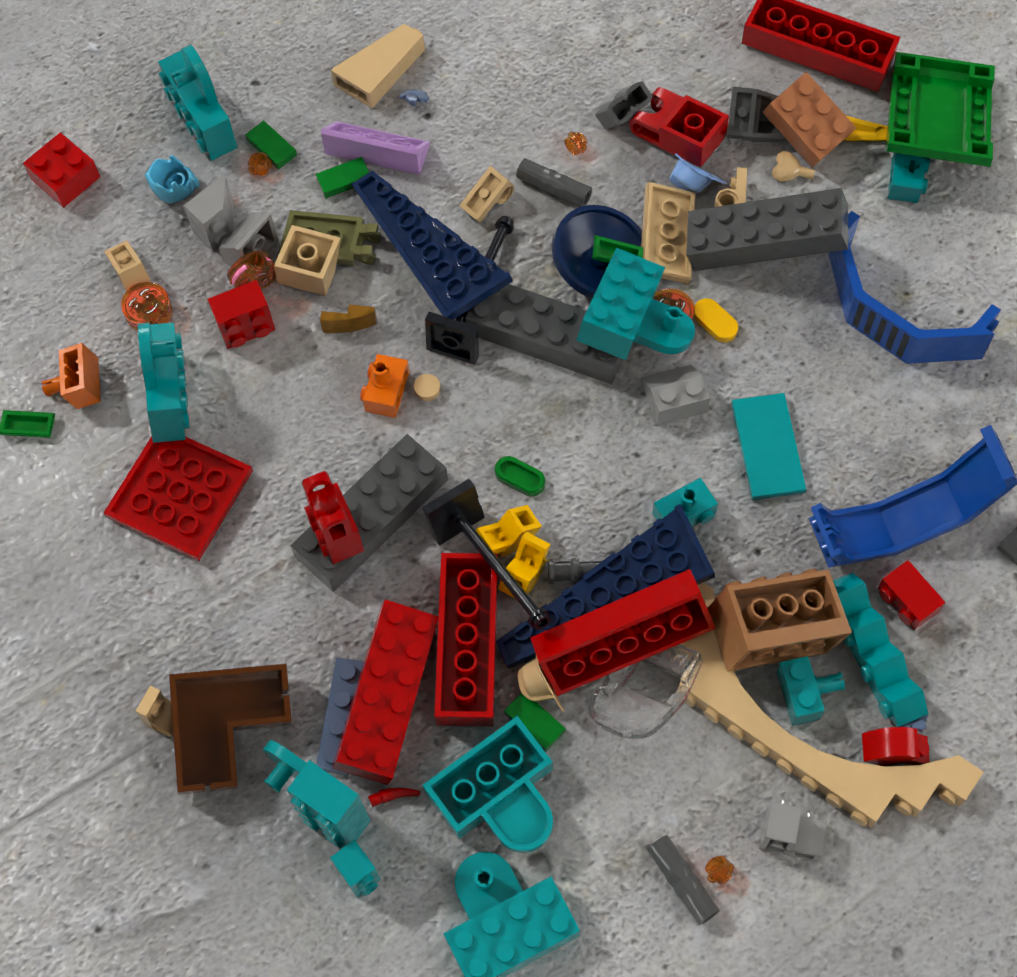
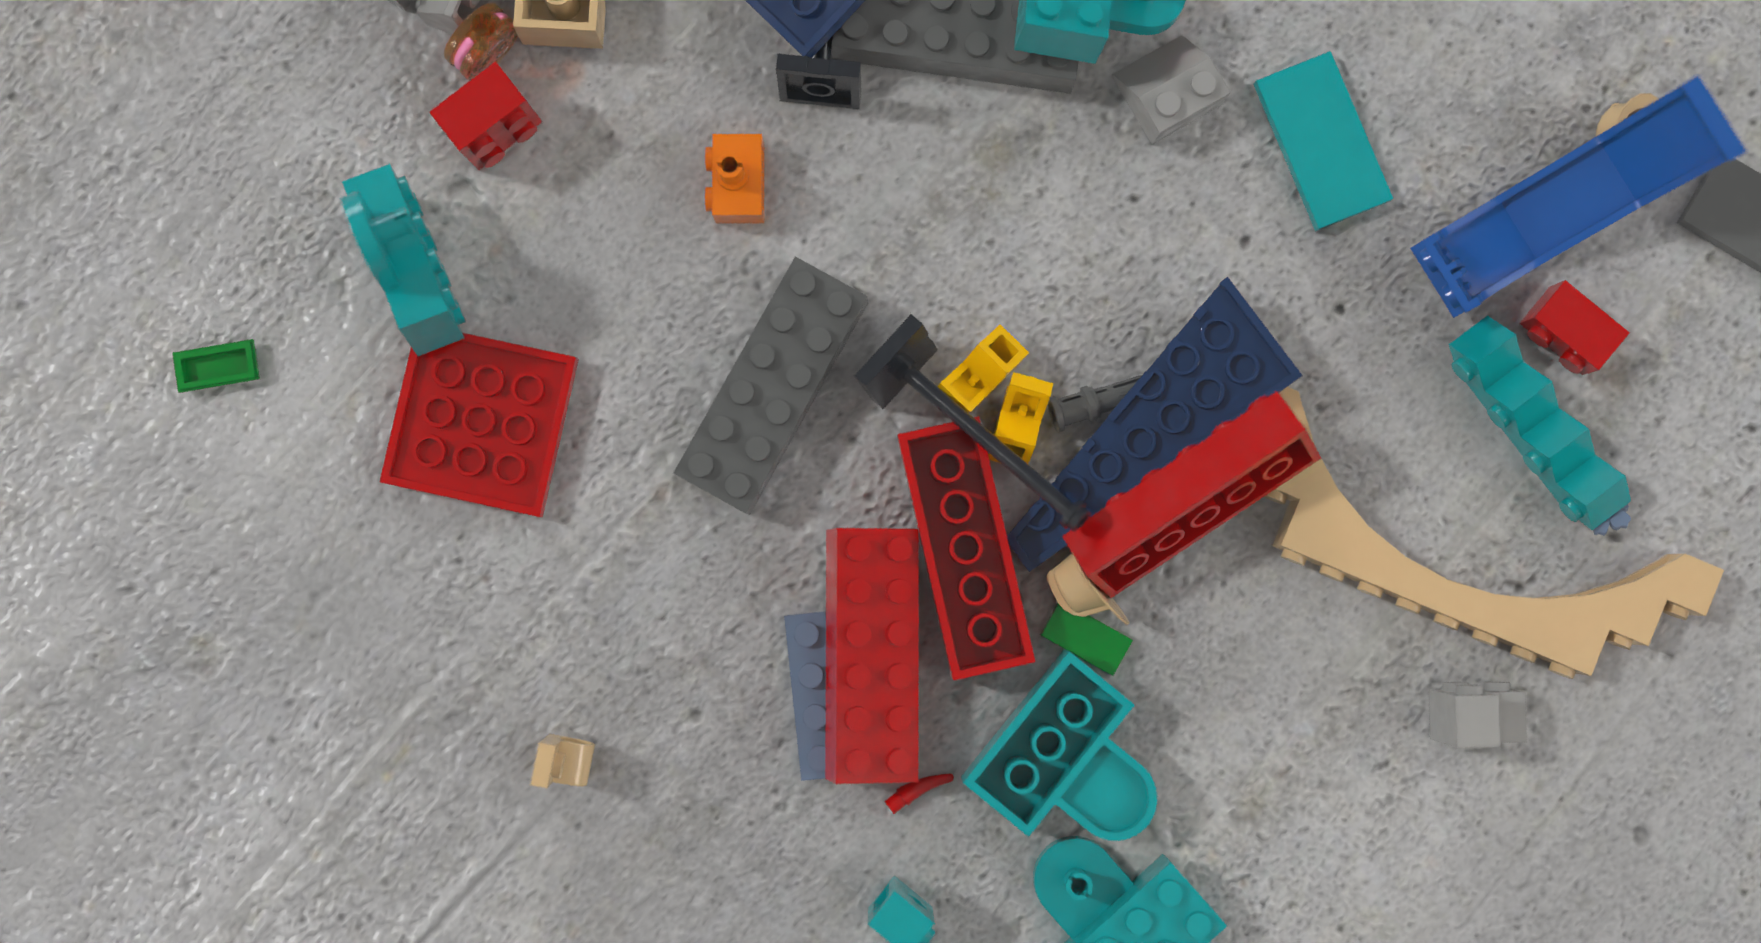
camera: 15 degrees left, 20 degrees up
(78, 377) = (267, 277): orange brick -> none
(127, 265) = (281, 71): tan plate -> none
(145, 304) = (334, 133): clear orange head -> none
(211, 707) = (636, 741): reddish brown piece -> none
(318, 796) = (839, 848): teal brick -> none
(331, 519) = (733, 436): red brick -> none
(355, 319) = (662, 78): pearl gold slope -> none
(427, 387) = (798, 164): tan tile -> none
(520, 476) = (972, 274): green tile -> none
(637, 716) = (1227, 606): clear slope -> none
(683, 880) = (1342, 812): dark grey axle -> none
(695, 500) = (1238, 257): teal brick -> none
(719, 870) = (1381, 780): clear orange plate -> none
(778, 619) = (1406, 420): medium nougat brick -> none
(804, 691) = (1452, 508): teal brick -> none
(894, 746) = (1593, 560): red brick -> none

